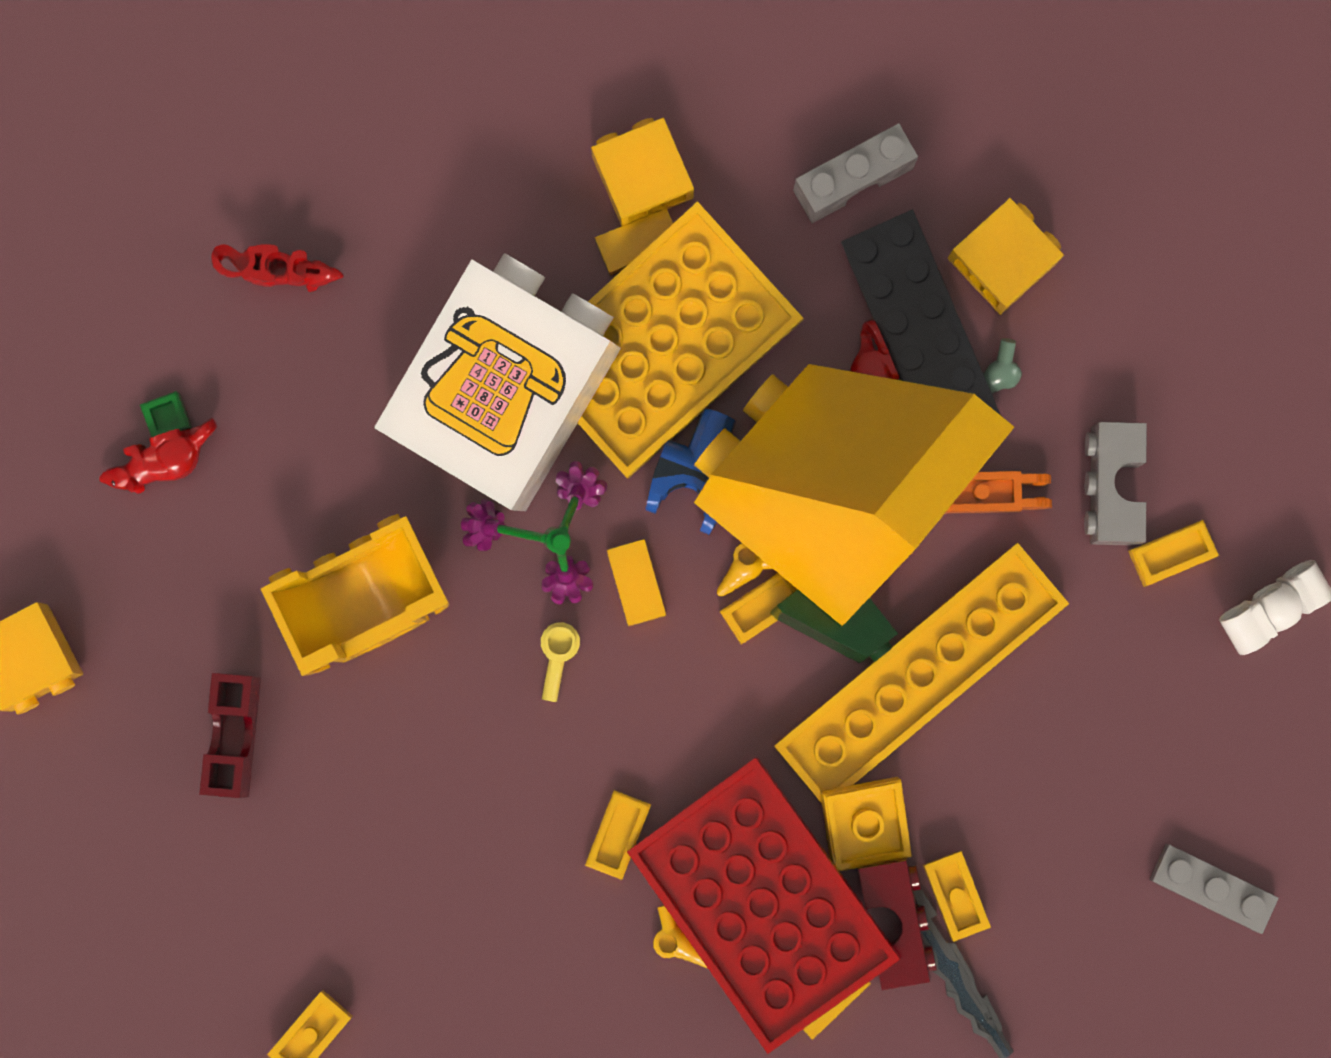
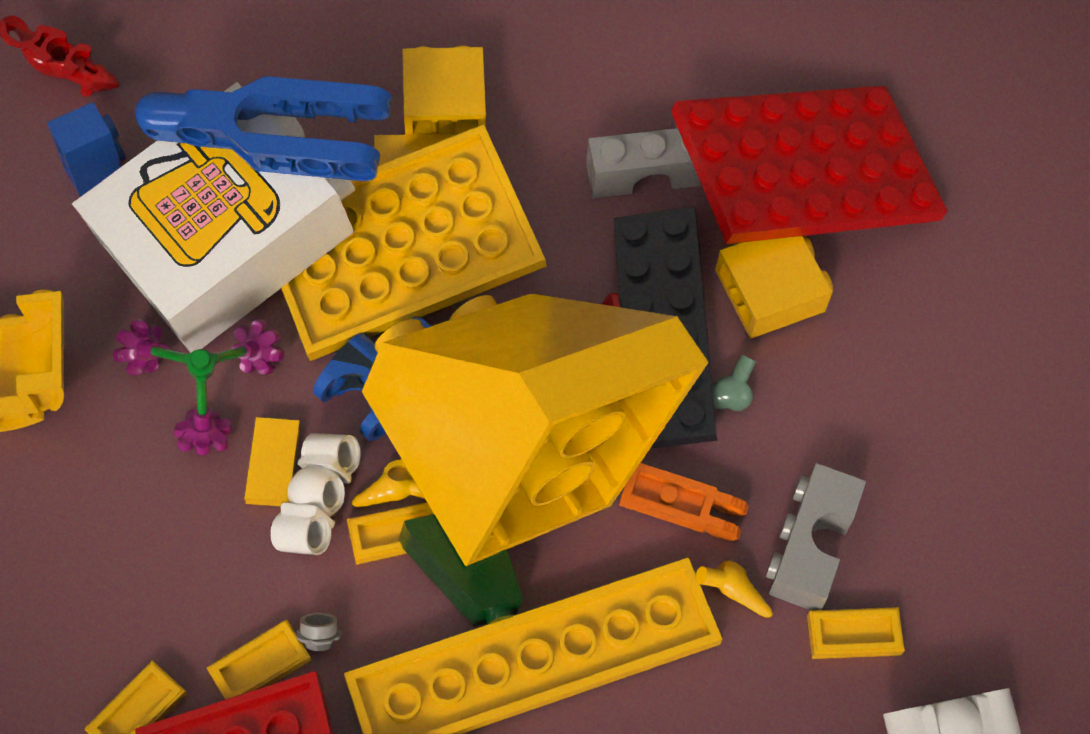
camera: 15 degrees right, 20 degrees down
(351, 355) = (87, 146): none -> blue brick
(475, 311) = (211, 119): none -> blue piece
(559, 645) = (165, 492): light yellow plate -> none
(688, 601) = (315, 493): none -> white piece
(699, 759) = (259, 662): none -> yellow tile
(737, 716) = (318, 631): none -> light grey plate
(999, 127) = (806, 163): none -> red plate
(1062, 549) = (734, 584): none -> yellow animal

